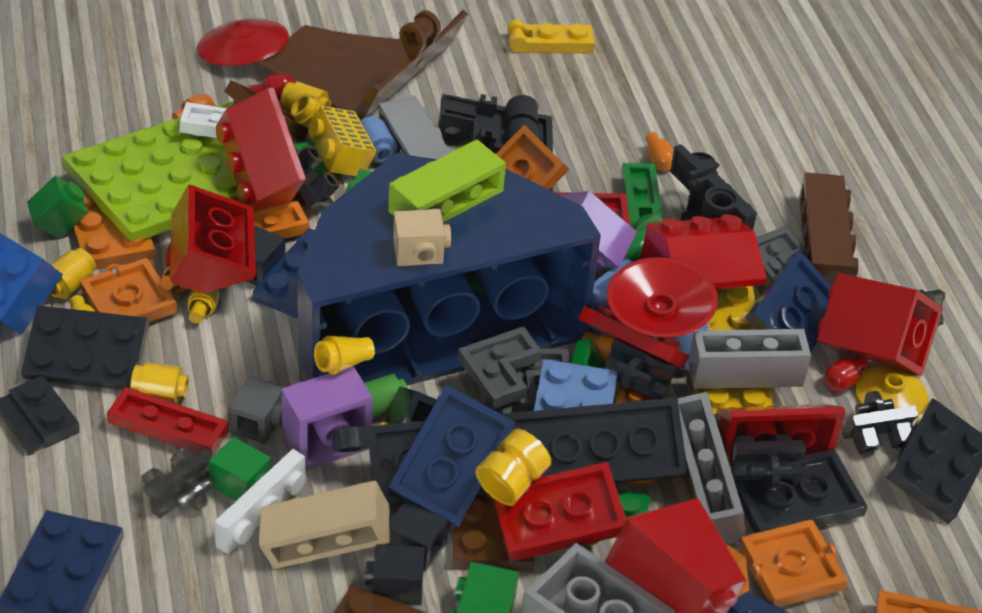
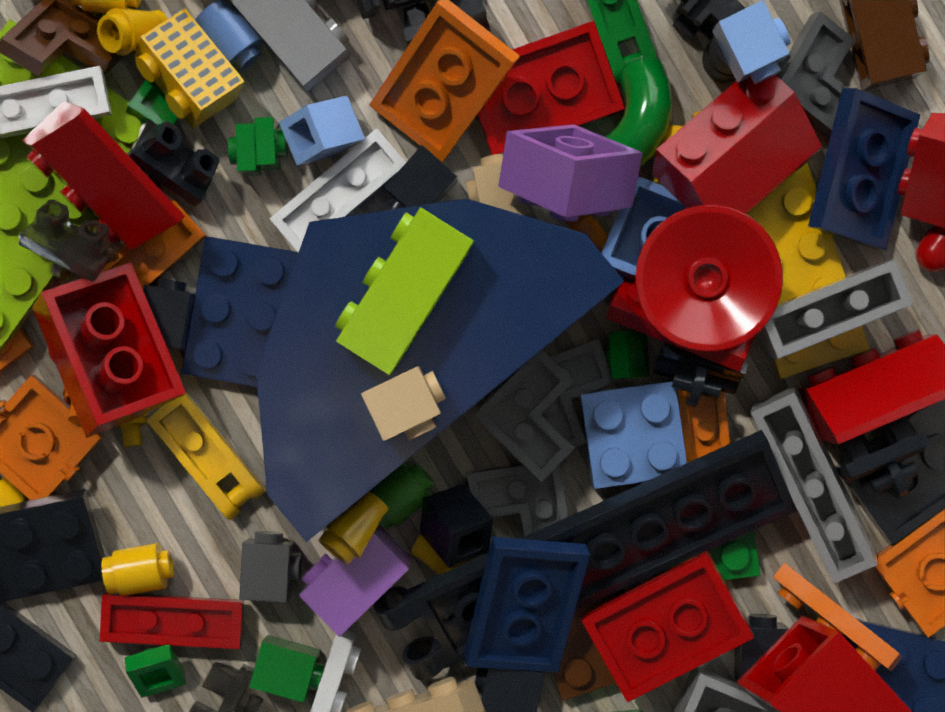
camera: 15 degrees left, 45 degrees up
(138, 445) = (155, 670): none -> green plate
(210, 172) = (69, 247): none -> clear smoke hips
(246, 337) = (205, 454): none -> yellow plate
(513, 466) = (603, 617): yellow wheel -> none
(730, 186) = (753, 42): none -> light blue brick

